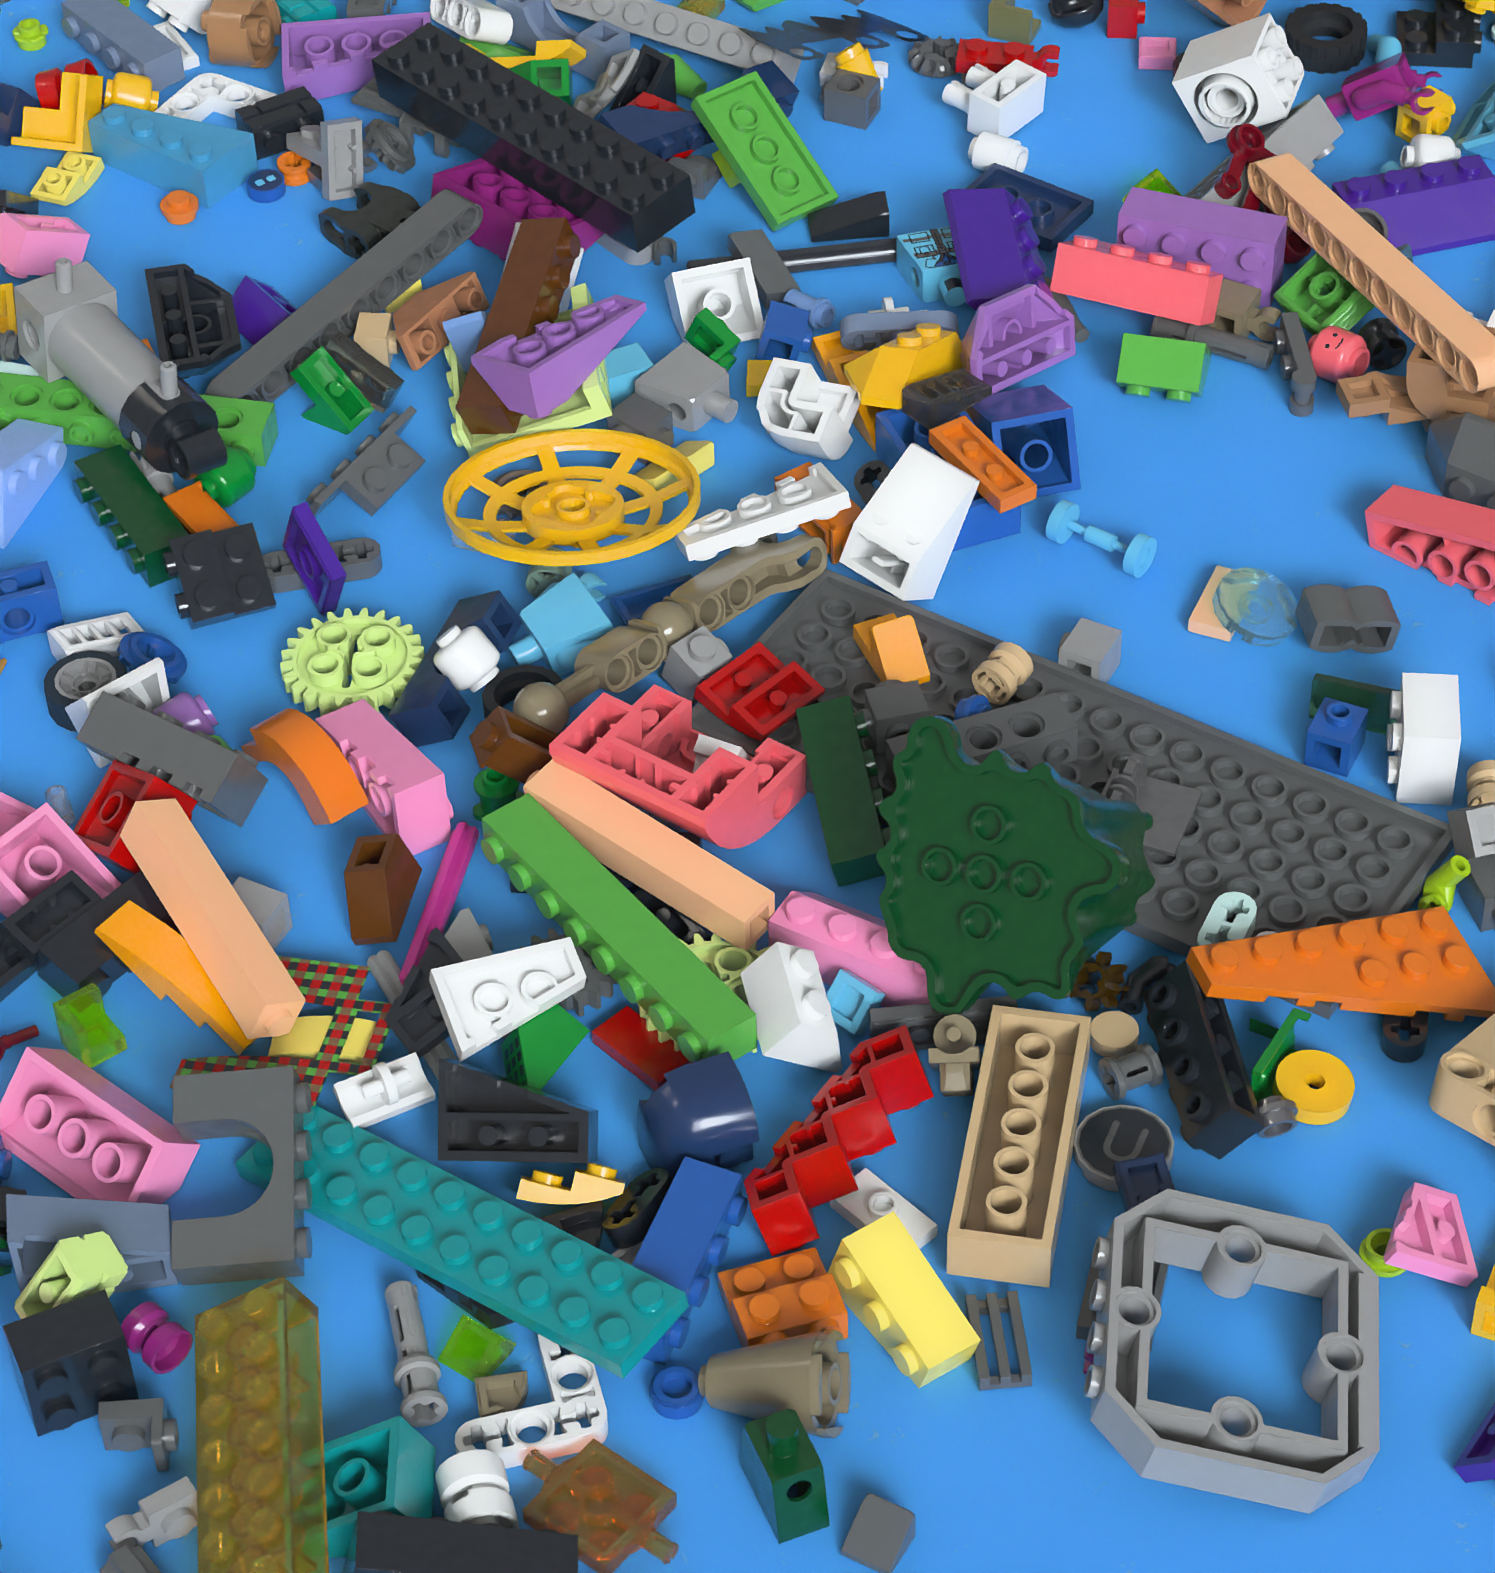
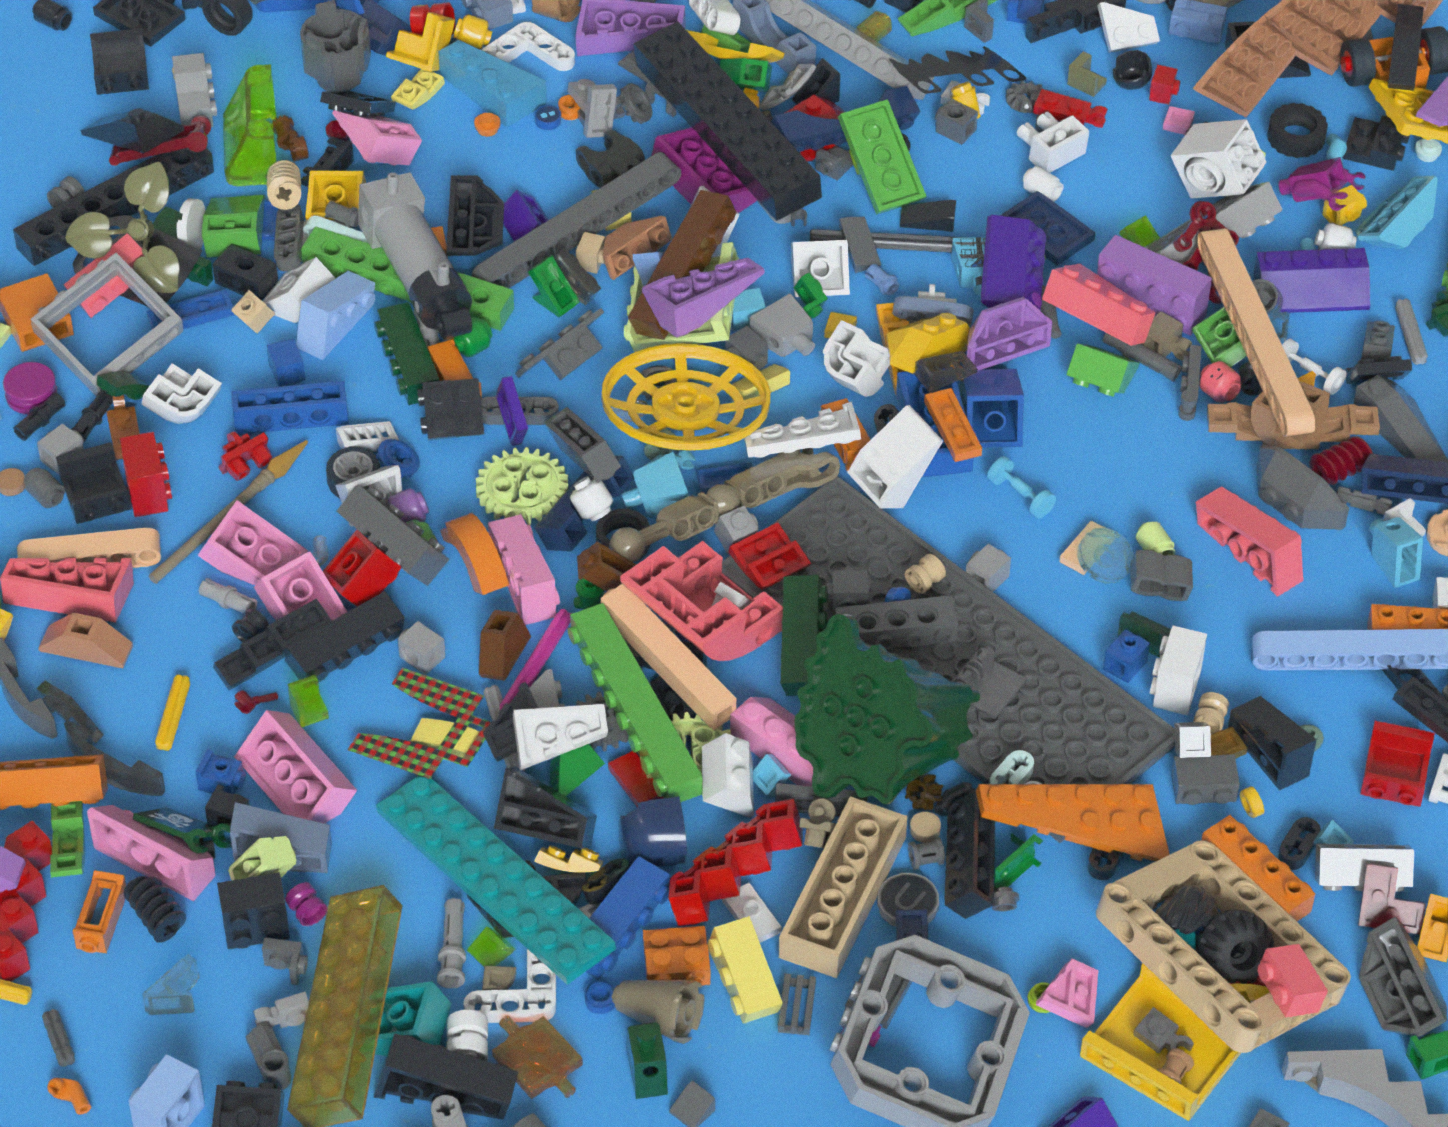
camera: 10 degrees right, 5 degrees up
(170, 968) = (371, 679): light orange slope -> none
(212, 918) = (393, 647): light nougat brick -> none
(270, 1234) = (386, 854): dark grey arch -> none
(276, 116) = (566, 68): black brick -> none
(384, 1091) = (473, 778): white hips -> none
(435, 584) = (582, 445): none -> dark grey brick
(687, 80) = (848, 84): bright green cone -> none
(784, 333) = (858, 298): blue brick -> none
(892, 648) = (861, 543): light orange slope -> none
(1316, 568) = (1154, 537): none -> yellowish green brick
(1320, 1070) = (1039, 873): yellow piece -> none
(1441, 884) = (1157, 770): lime arm -> none

